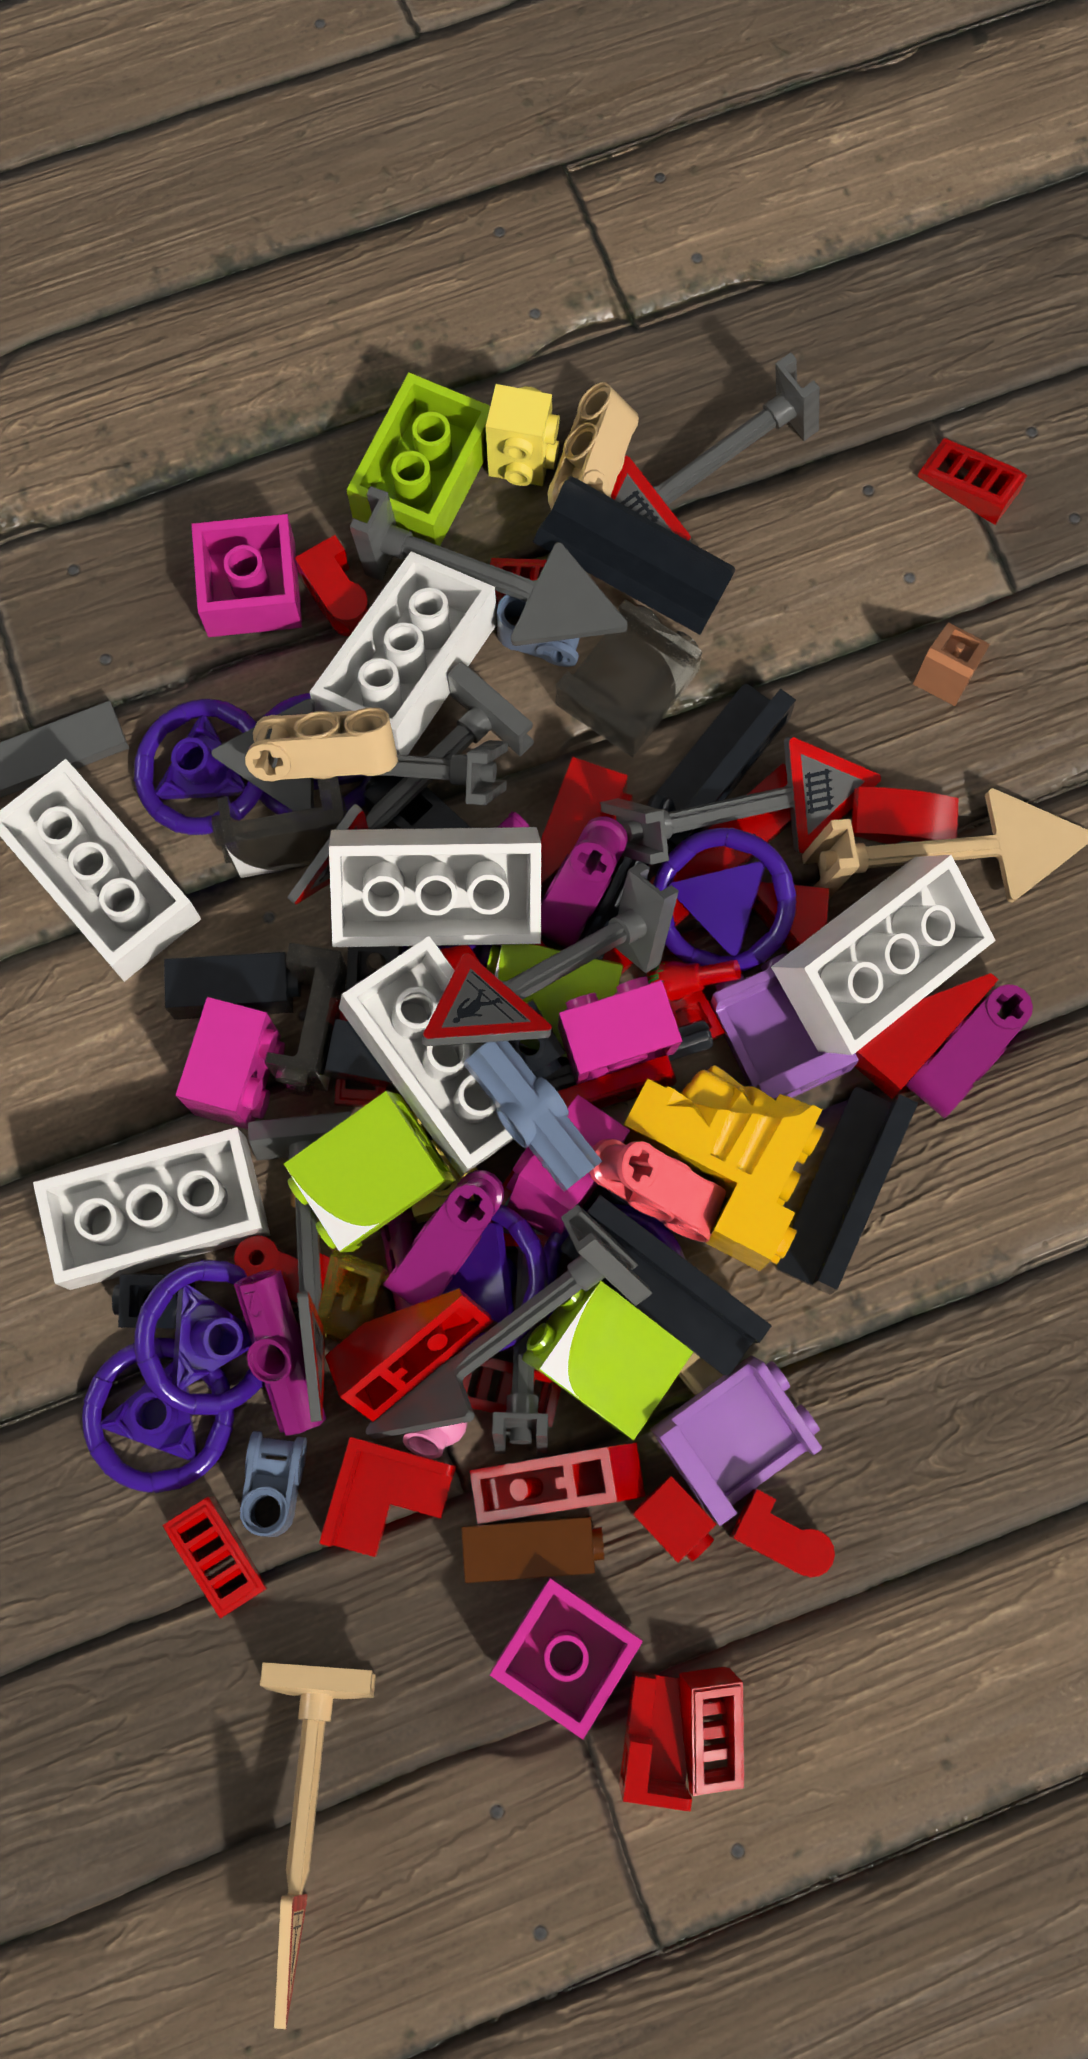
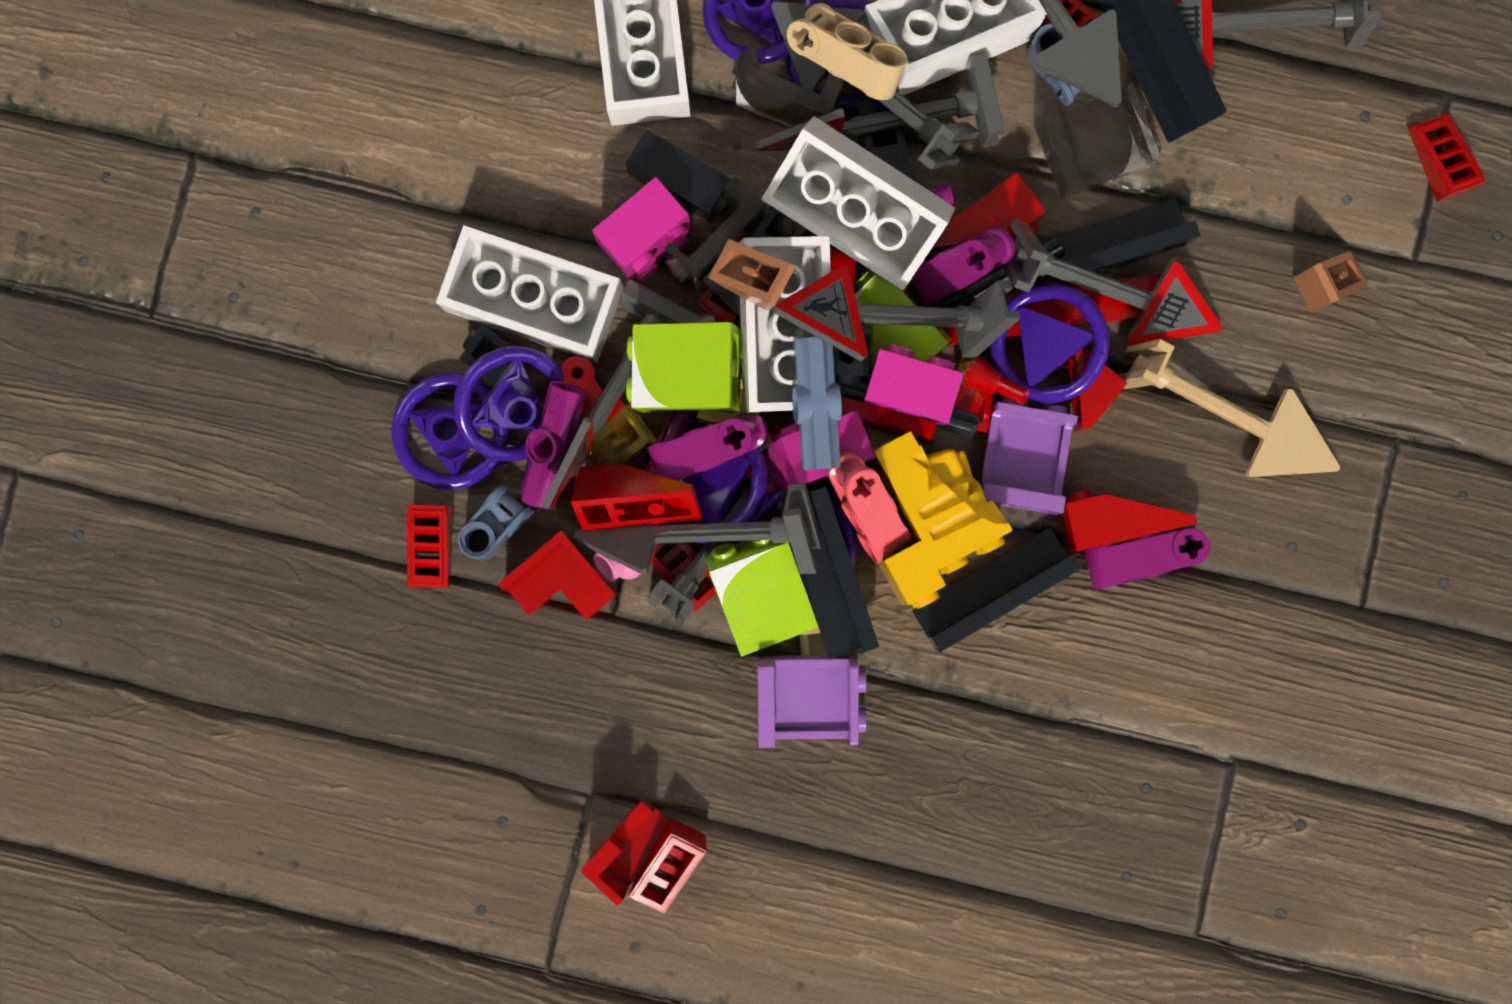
camera: 30 degrees right, 10 degrees up
(316, 1689) = (437, 673): tan piece -> none
(376, 1024) = (751, 274): none -> nougat slope
(531, 1549) = (629, 678): reddish brown brick -> none
(557, 1483) = (675, 650): red slope -> none
(566, 1657) = (606, 759): dark pink brick -> none
(675, 1521) = (733, 724): red brick -> none
(798, 1549) = (798, 794): red leg -> none
(883, 954) = (1132, 453): white brick -> none
(903, 814) = (1217, 366): red slope -> none

